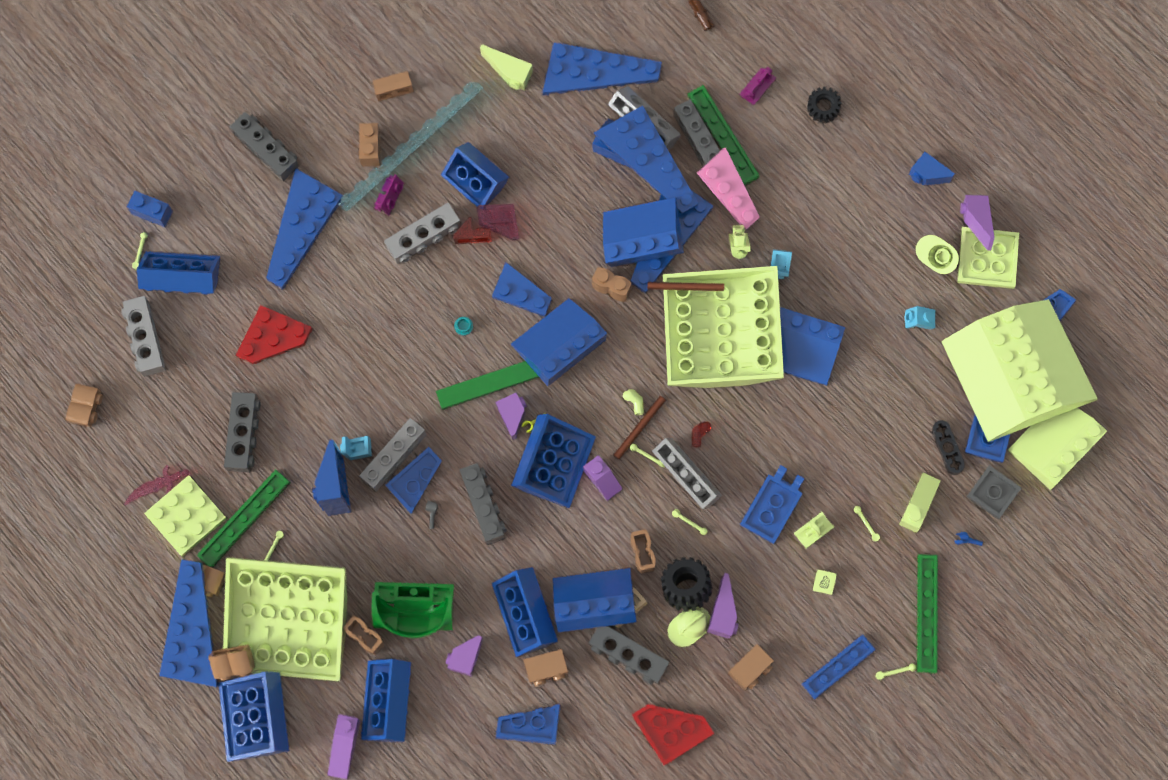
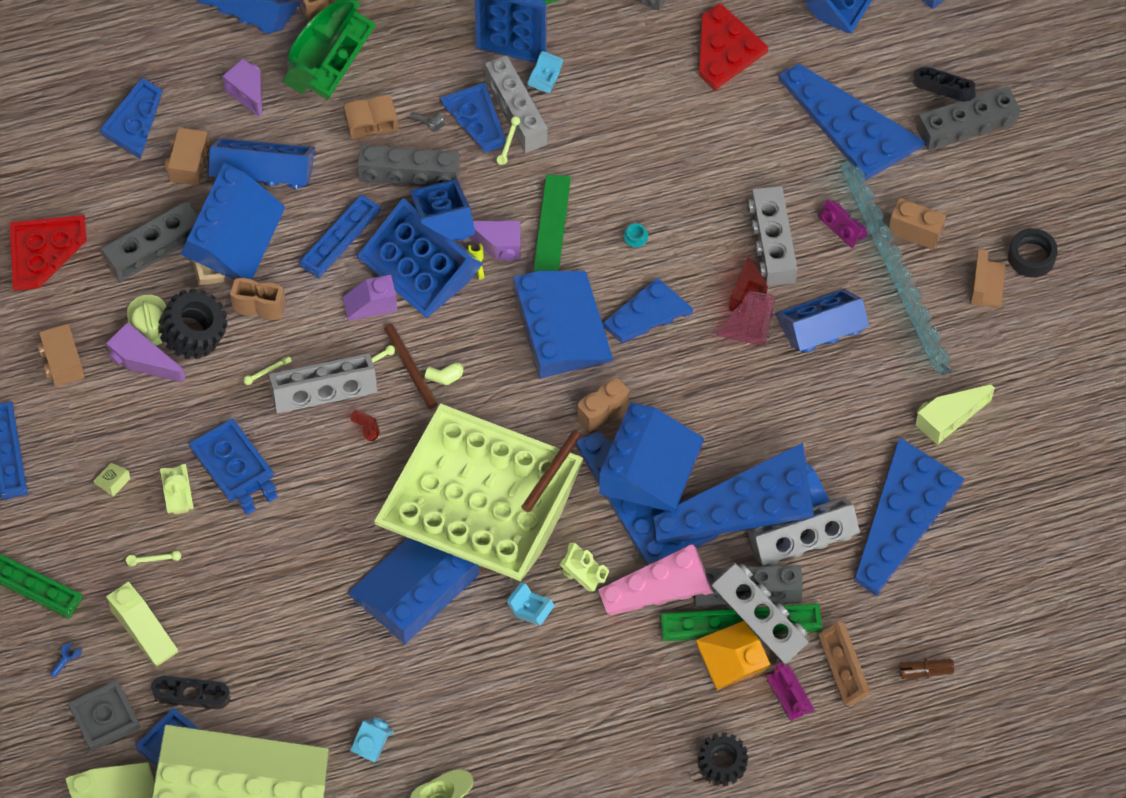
camera: 110 degrees right, 15 degrees down
(250, 168) = (944, 84): none -> black beam
(357, 78) = (1028, 268): none -> black tyre
(441, 446) = (502, 159): none -> yellowish green hinge
(450, 553) = (370, 116): none -> medium nougat brick
(515, 454) = (444, 209): none -> blue slope
(558, 527) = (339, 236): none -> blue tile
(721, 116) = (783, 647): none -> light grey brick
(723, 60) = (844, 663): none -> medium nougat plate
(752, 126) = (732, 654): none -> light orange slope

